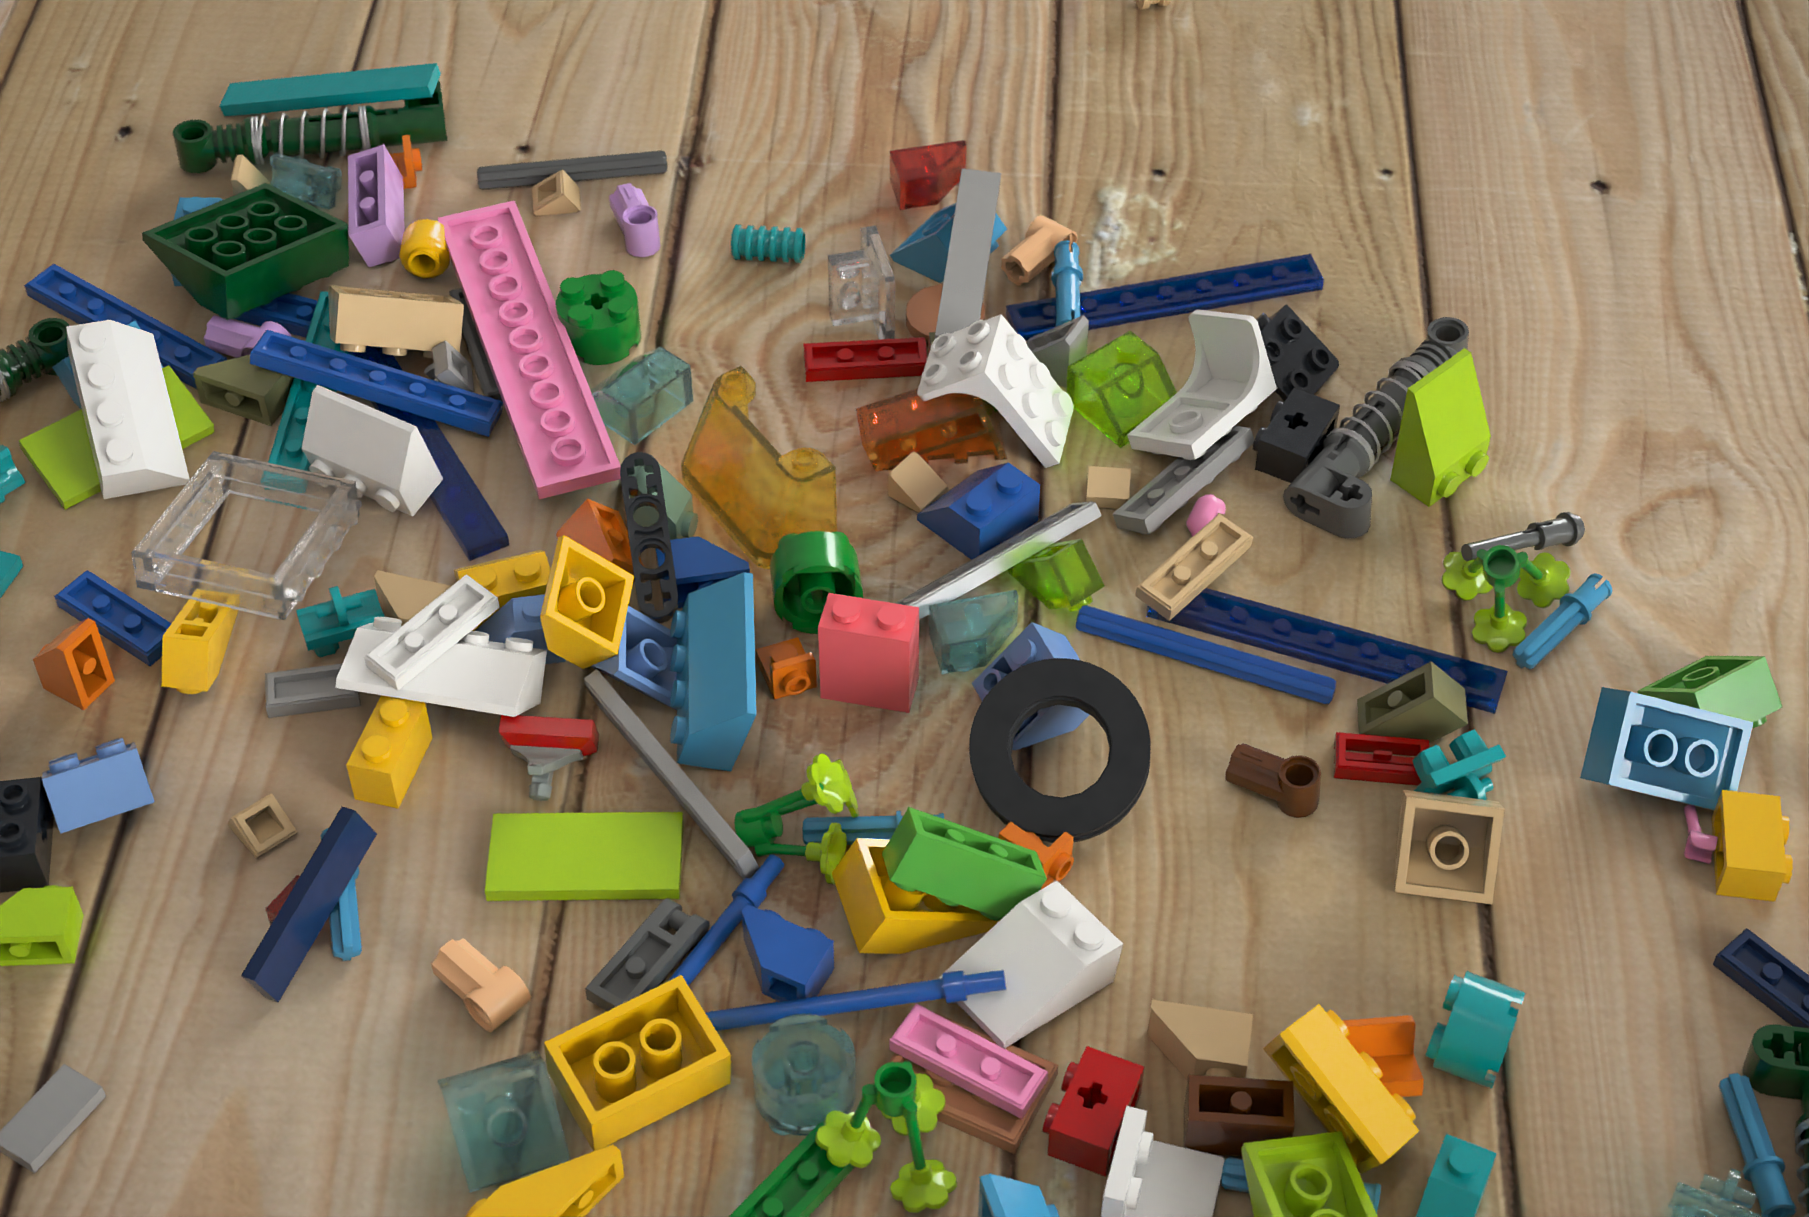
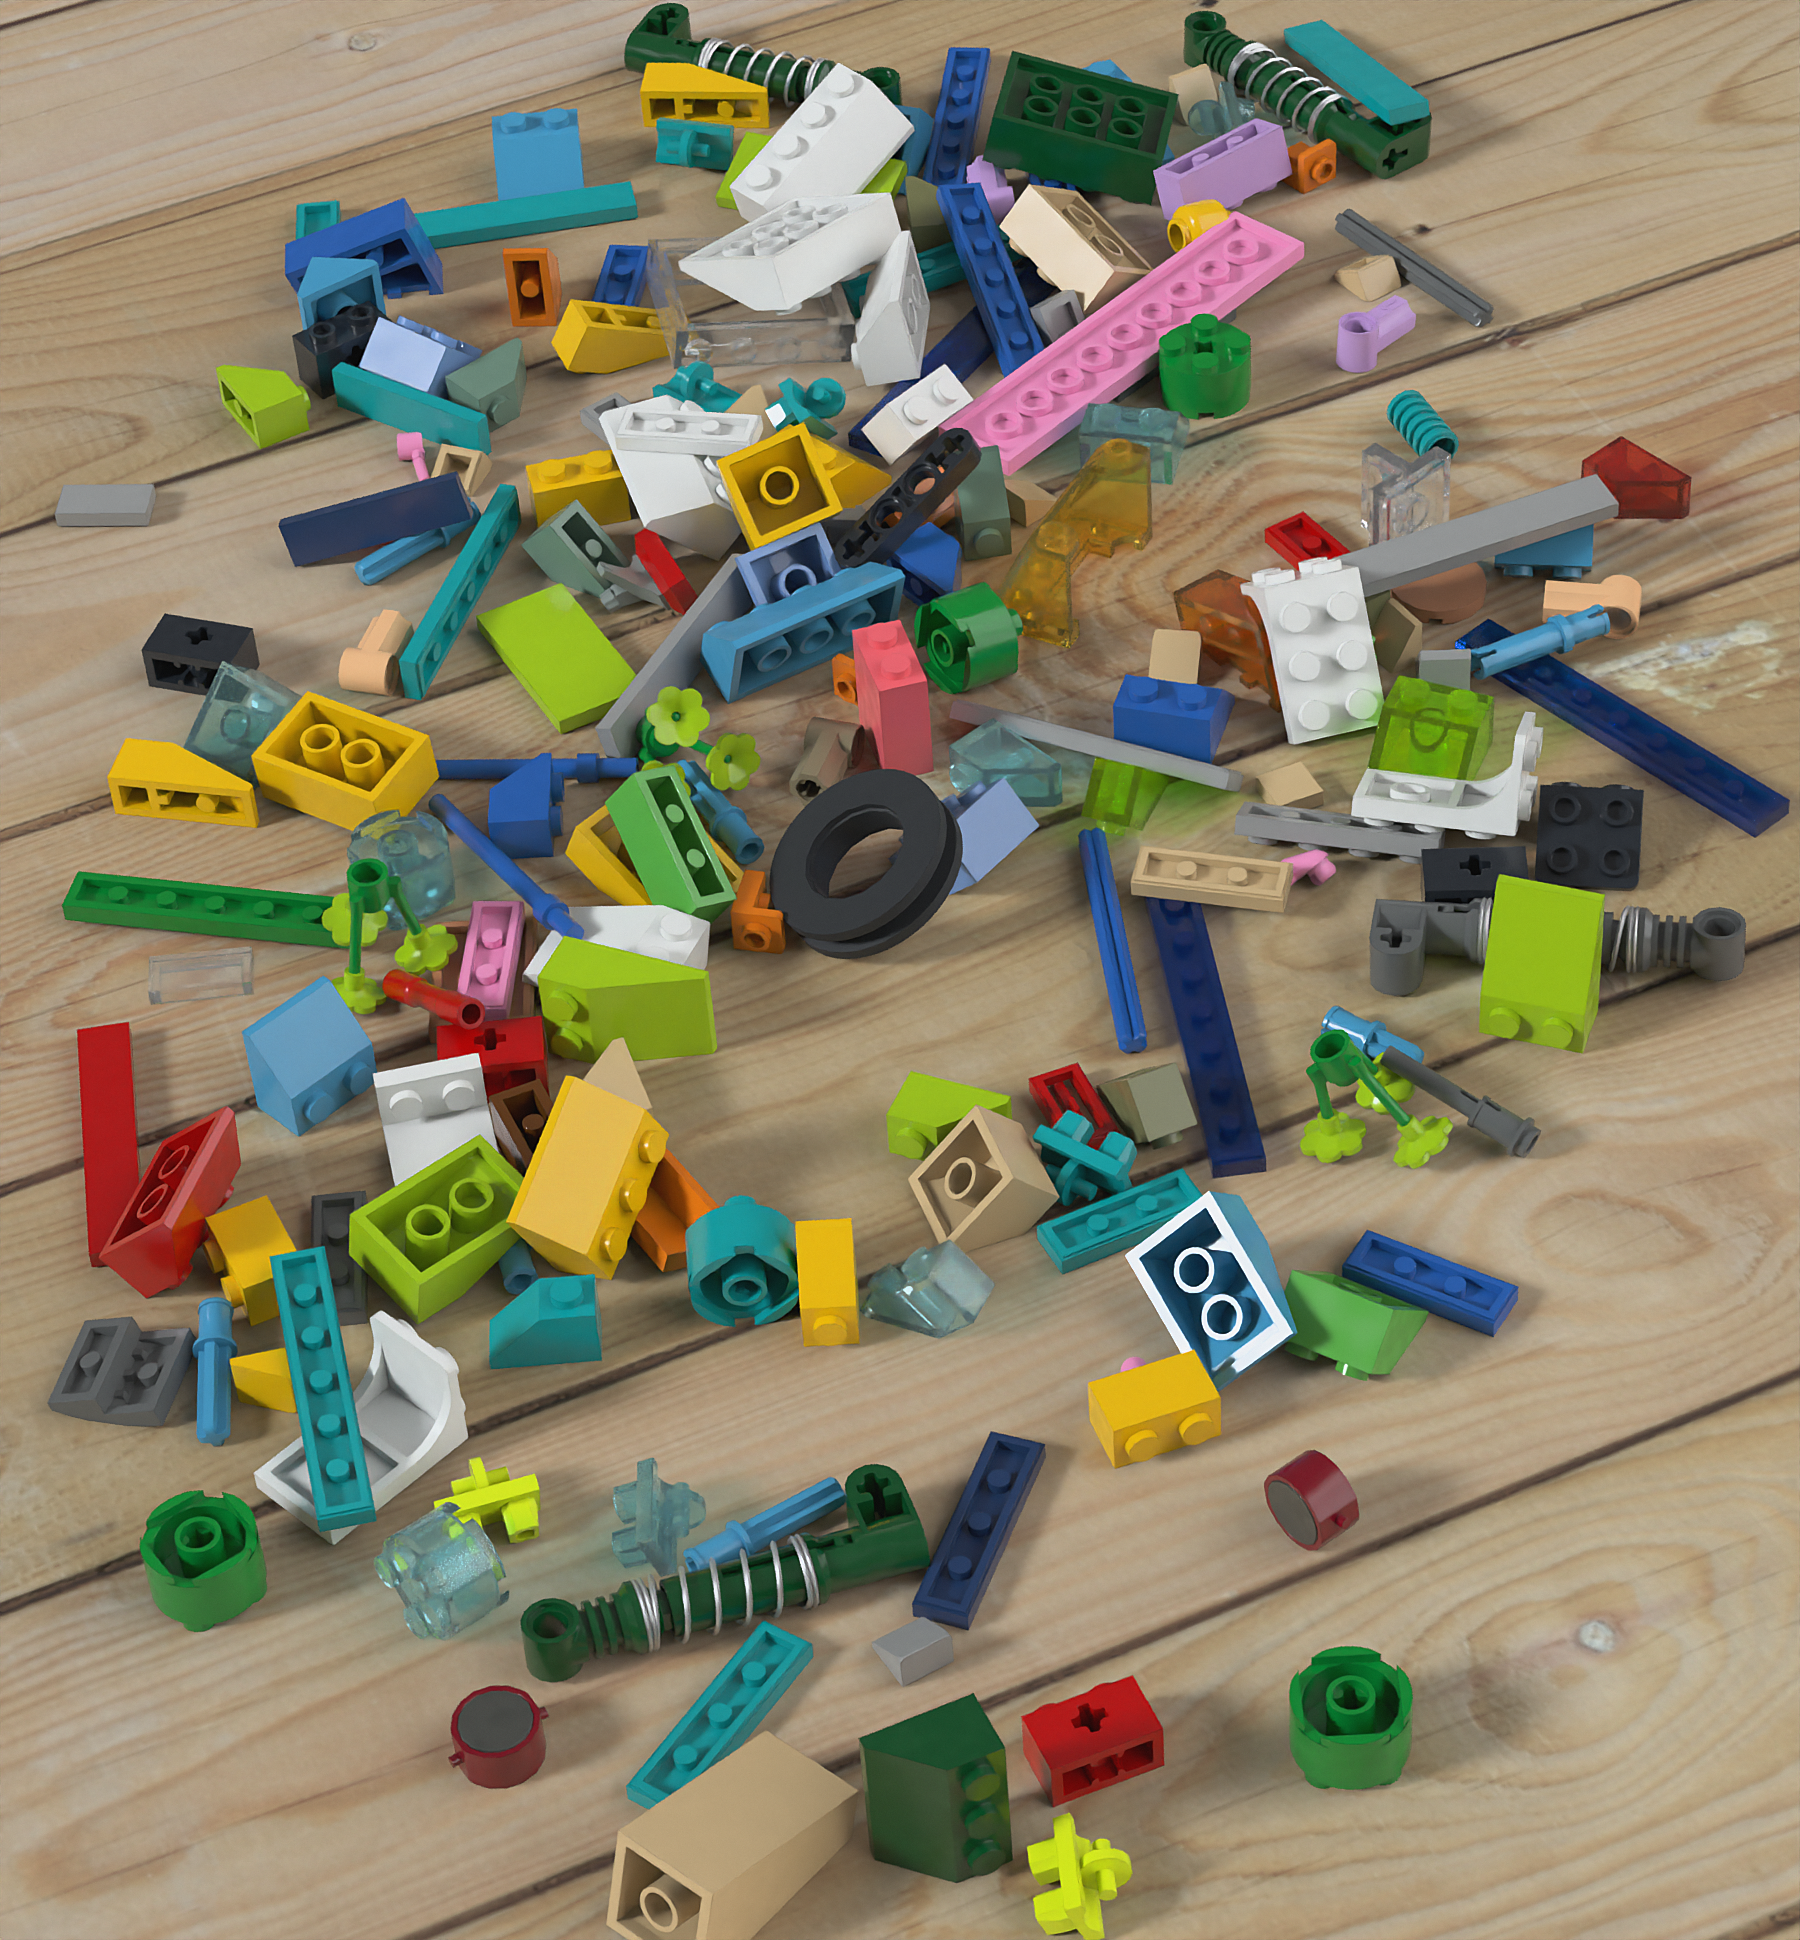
camera: 65 degrees right, 5 degrees down
(153, 822) = (410, 409): none -> teal tile
(183, 754) = (492, 384): none -> sand green slope
(201, 842) = (411, 448): none -> bright pink hand
(242, 469) = (798, 250): none -> white slope
(365, 1121) = (188, 651): none -> black brick
(440, 552) = (798, 405): none -> teal hips
(451, 890) = (460, 592): none -> teal tile
(468, 784) = (571, 548): none -> sand green slope
(507, 494) = (916, 414): none -> white brick
(647, 956) = (480, 734): dark grey plate -> none
(864, 724) = (828, 752): none -> dark tan piece
(1035, 1106) = (447, 1004): none -> red piece
(1101, 988) = (611, 993): none -> lime slope
(1289, 781) = (977, 1038): reddish brown piece -> none
(1355, 839) = (930, 1109): none -> lime slope
(1413, 561) = (1367, 1035): none -> dark azure axle
(1521, 783) = (1116, 1221): none -> teal tile
(1534, 971) = (827, 1282): none -> yellow slope
(1550, 929) = (929, 1292): none -> clear light blue slope
(1573, 611) = (1374, 1176): dark azure axle -> none
(1679, 642) = (1431, 1282): none -> blue tile

